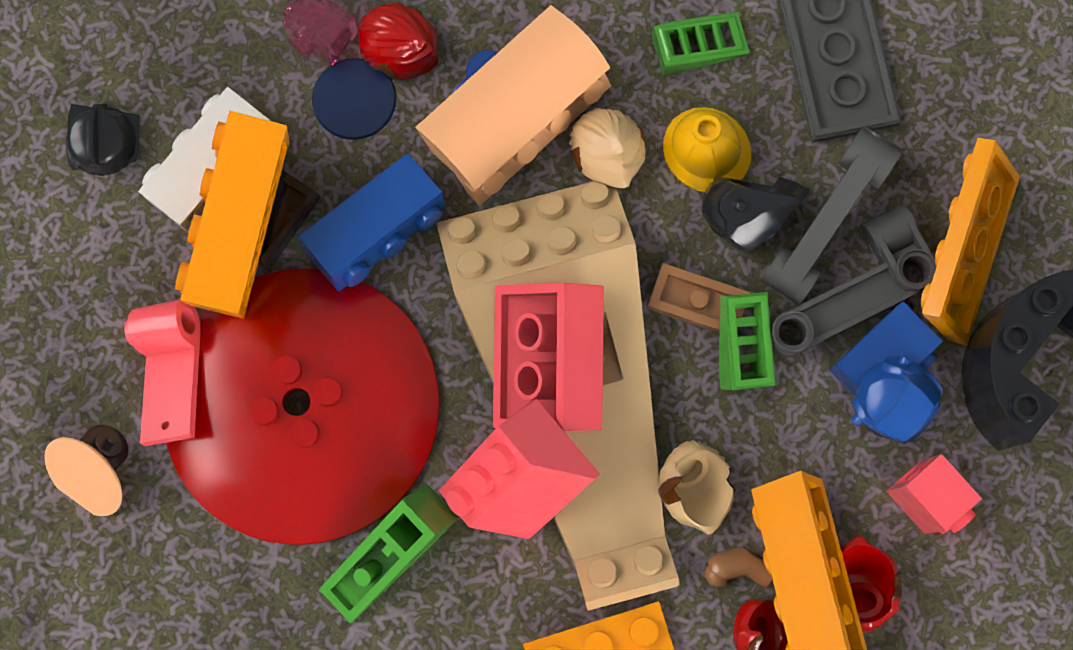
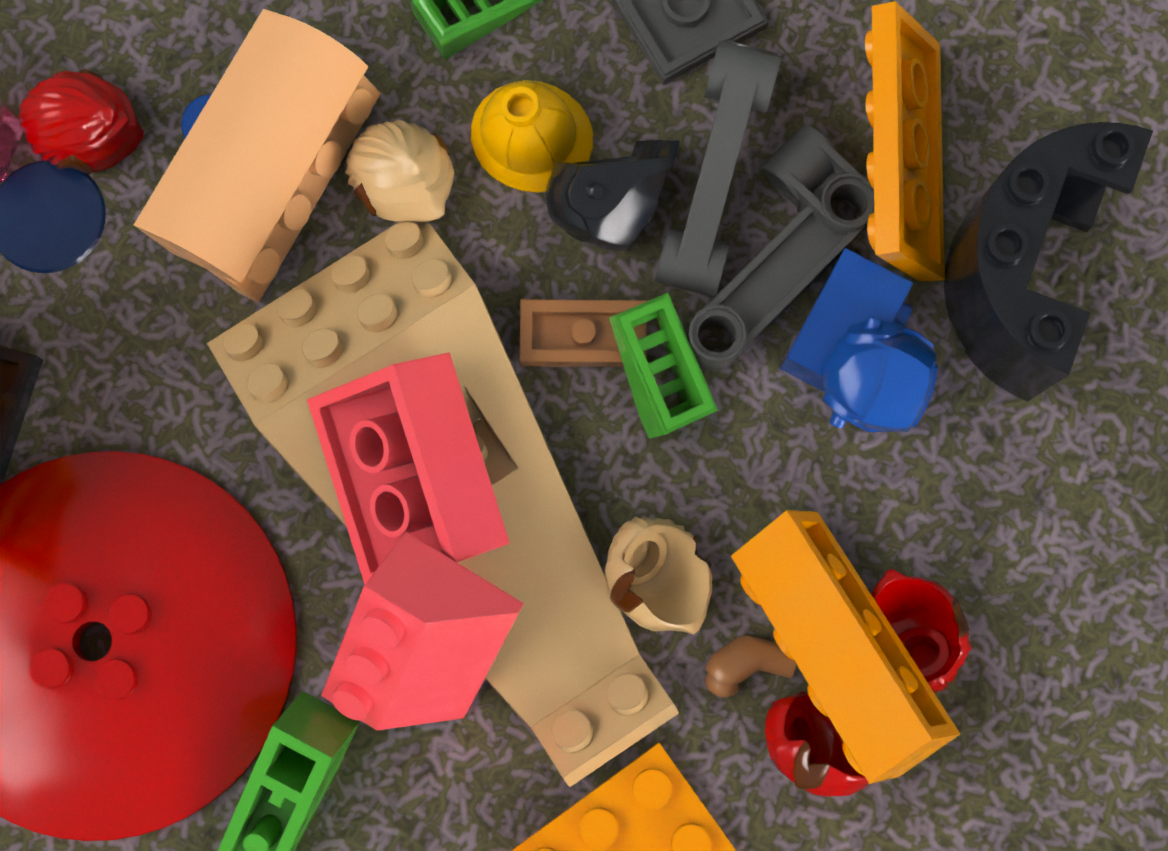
camera: 25 degrees left, 0 degrees up
(373, 223) = (121, 370): blue brick -> none
(935, 496) = (970, 485): coral brick -> none

